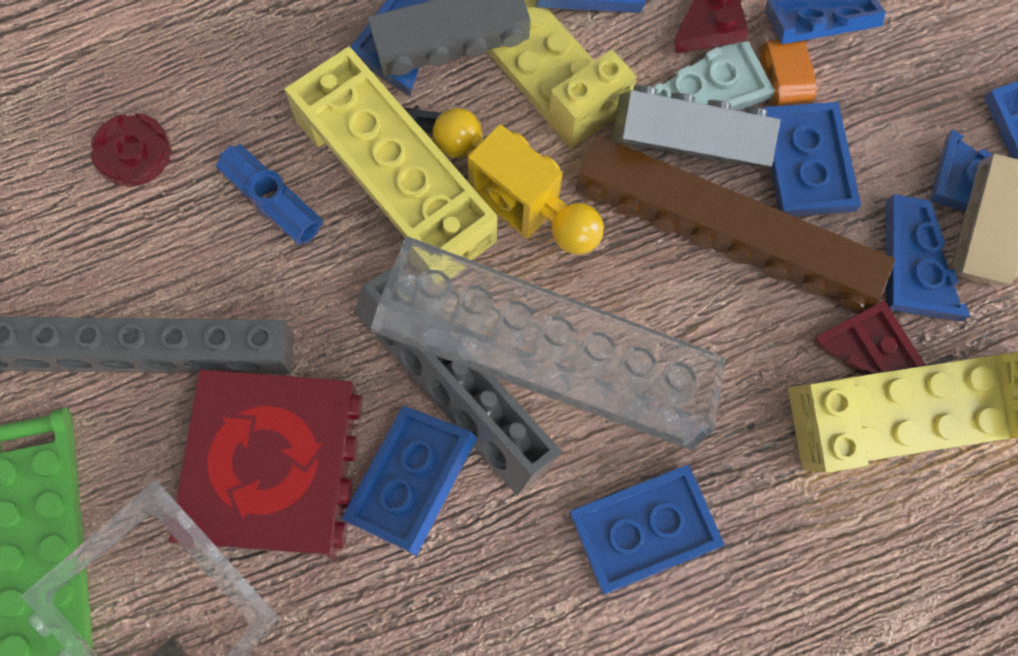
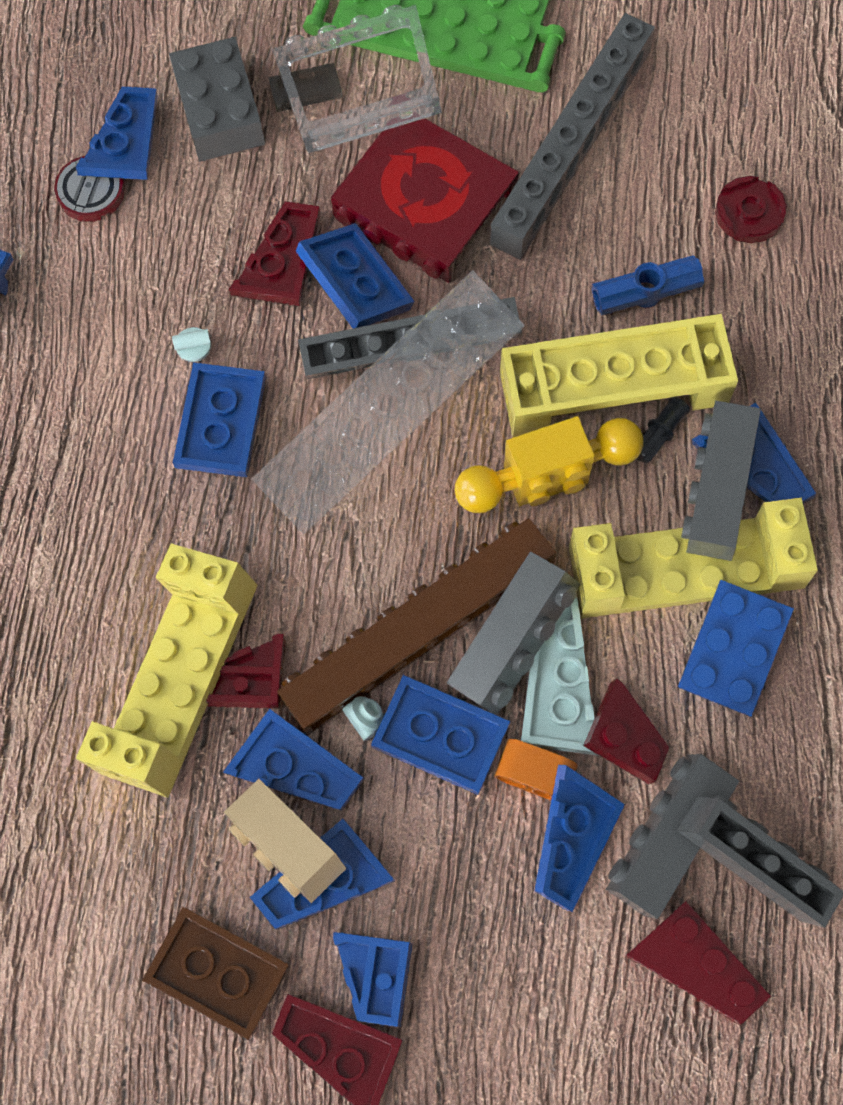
camera: 125 degrees right, 0 degrees up
(439, 579) = (276, 269): none -> dark red wing
(578, 614) = (192, 344): none -> light aqua plate
(838, 222) = (364, 715): none -> light aqua plate

